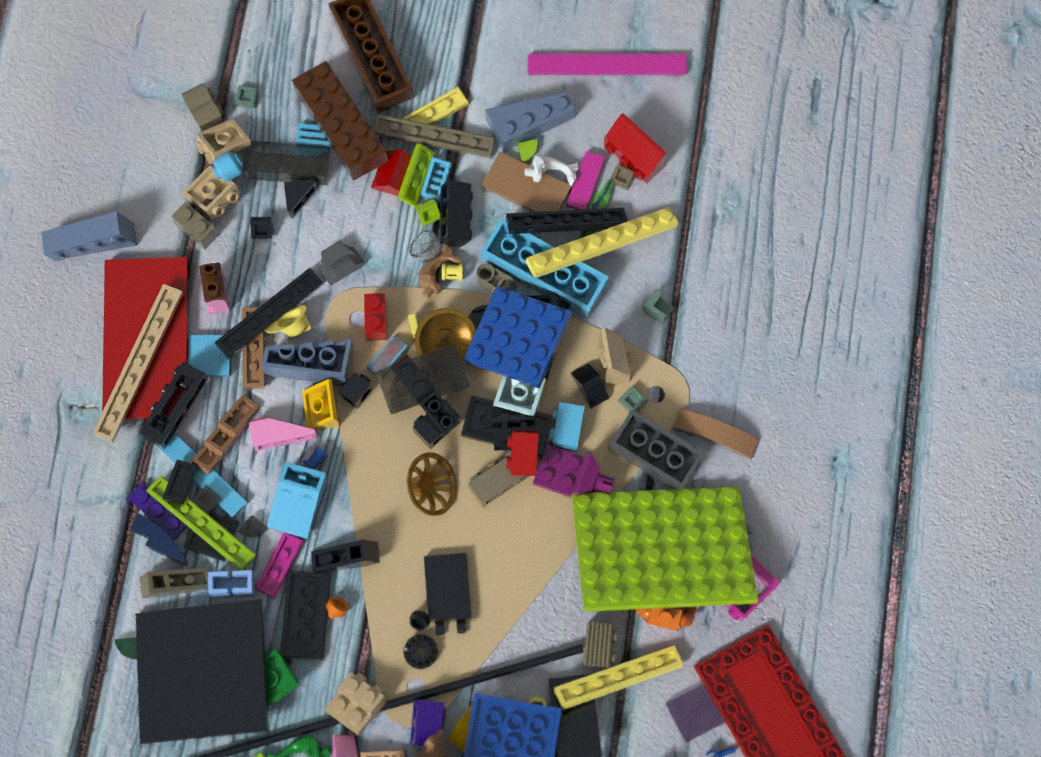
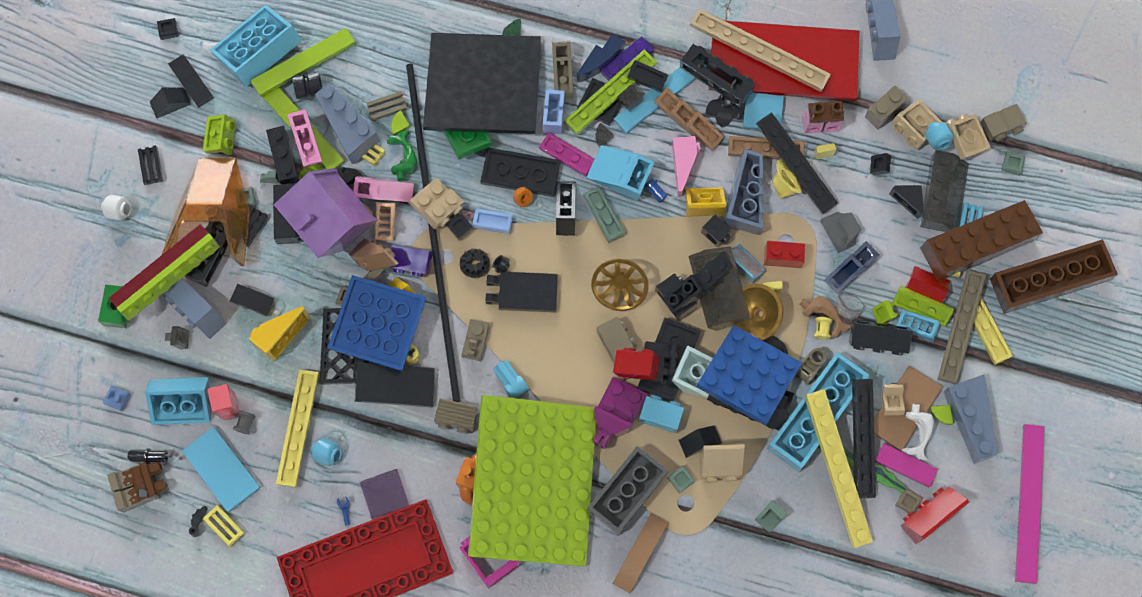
camera: 100 degrees right, 0 degrees up
(213, 397) = (723, 112): none -> black plate
(251, 286) = (824, 151): none -> light yellow tile
(347, 514) = (604, 214): none -> sand green tile
(368, 638) = (492, 221): none -> light blue tile
(380, 673) = (460, 227): none -> black plate
(381, 247) = (852, 267): none -> dark blue slope
(509, 638) = (475, 340): none -> dark tan plate
(523, 195) = (893, 400): none -> tan bracket
(554, 588) = (513, 384): none -> medium azure piece
(618, 677) = (424, 428): light yellow plate -> none

